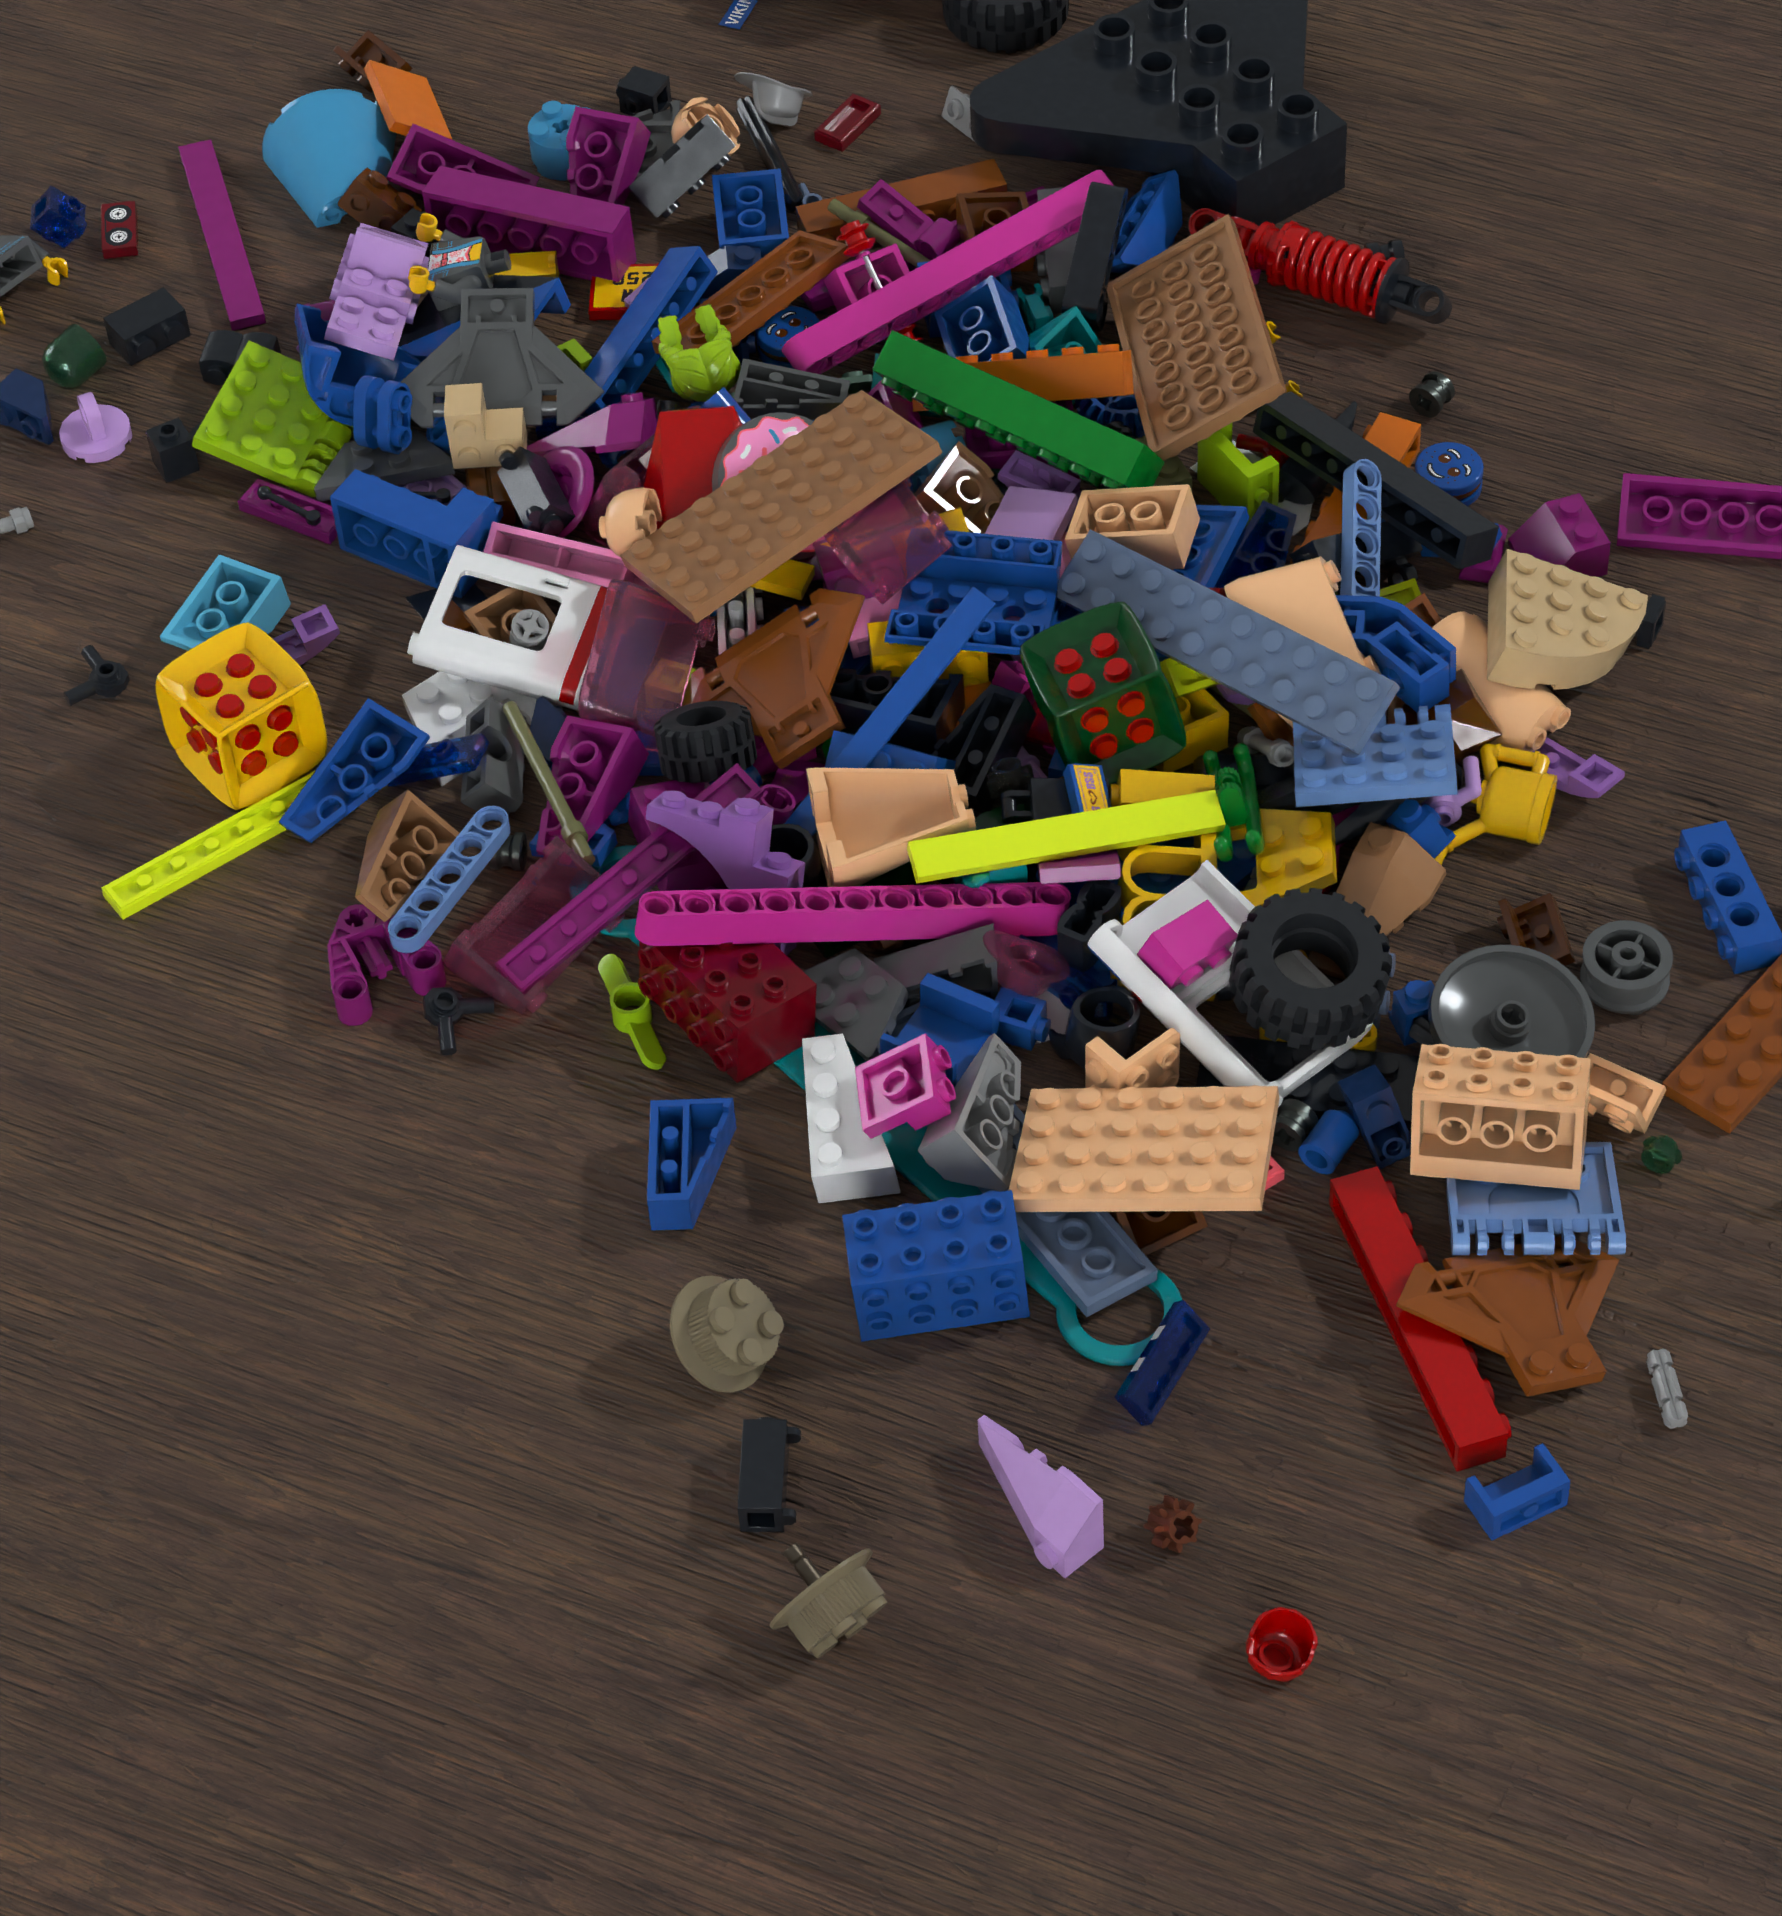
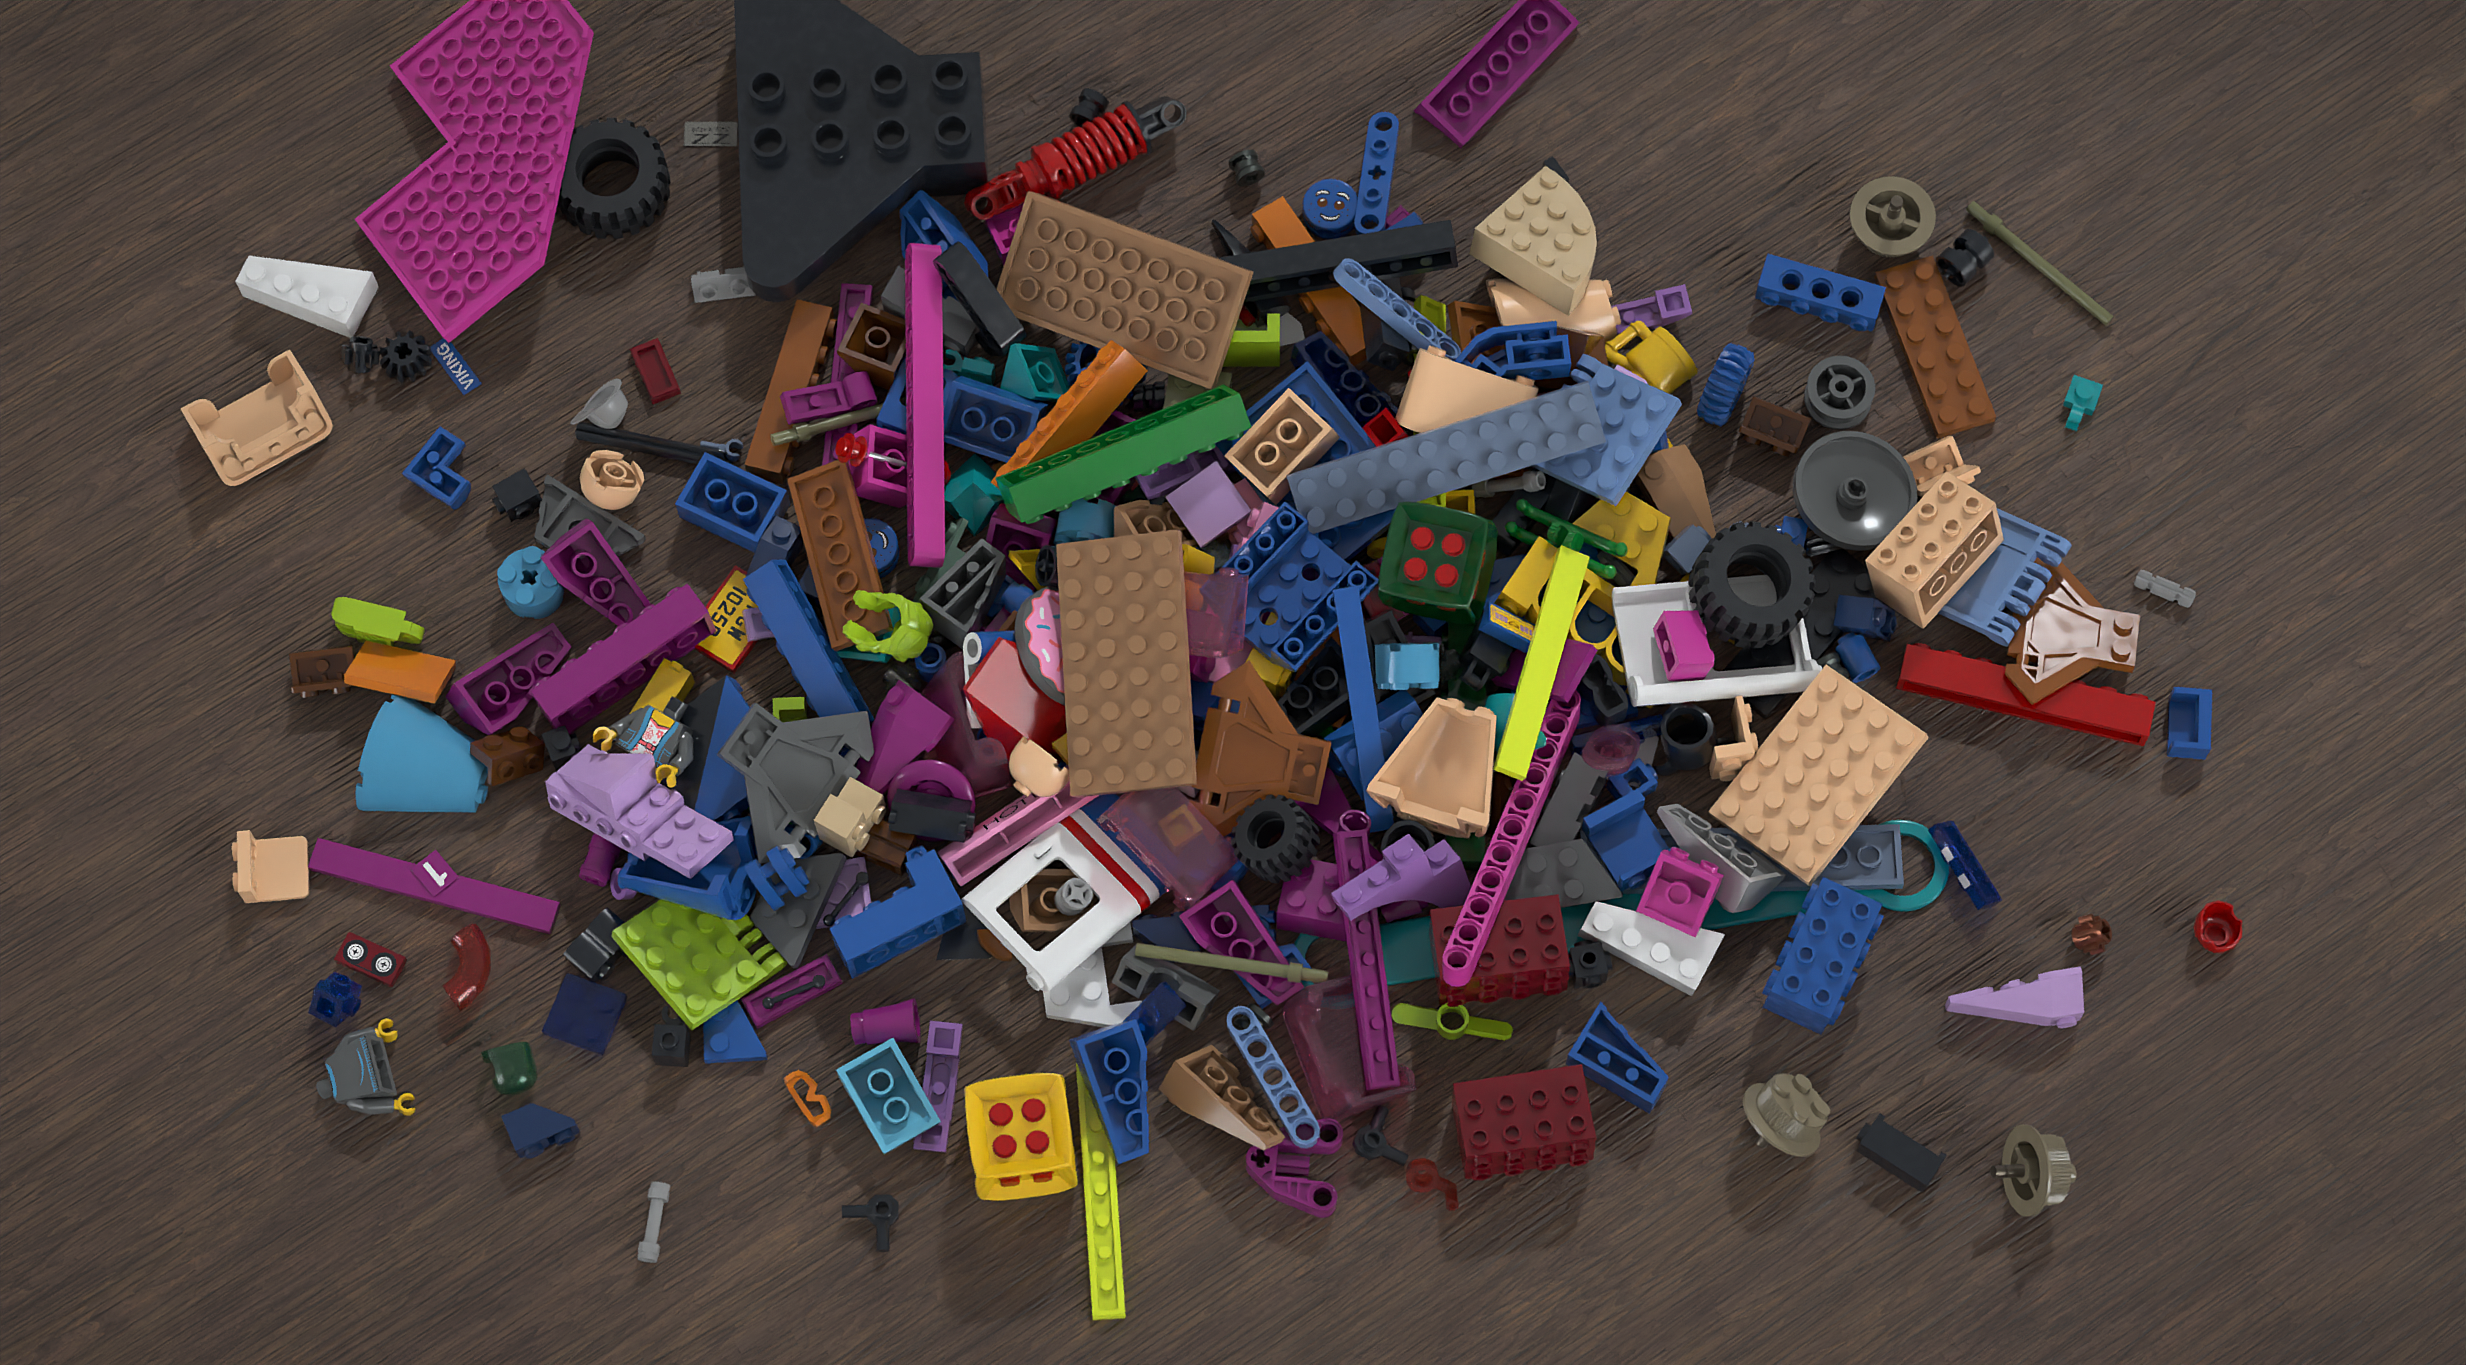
camera: 60 degrees left, 20 degrees up
(95, 431) = (599, 1091): lavender tile -> none
(147, 326) = (512, 995): black brick -> none
(154, 119) = (270, 868): none -> light nougat bracket
(167, 387) = (584, 1014): none -> clear blue plate
(176, 277) = (473, 966): none -> clear red cylinder
(194, 543) = (791, 1079): none -> orange helmet
(216, 490) = (731, 1037): none -> blue wing
(231, 223) = (434, 873): none -> magenta sticker
(305, 583) = (887, 1022): none -> magenta plant
(435, 1068) = (1430, 1180): none -> clear red plate
(443, 69) = (374, 622): none -> lime piece
(549, 1107) = (1523, 1122): none -> dark red brick
(626, 30) = (432, 471): none -> blue brick
(682, 168) = (651, 518): black wedge -> none
(777, 1083) = (1585, 974): none -> black brick
(971, 729) = (1407, 665): none -> dark azure brick
(1524, 484) = (1378, 157): none -> blue piece
(1540, 859) = (1725, 384): none -> blue gear
(1565, 535) = (1447, 184): magenta slope -> none
(1660, 1154) = (1992, 472): clear green plate -> none

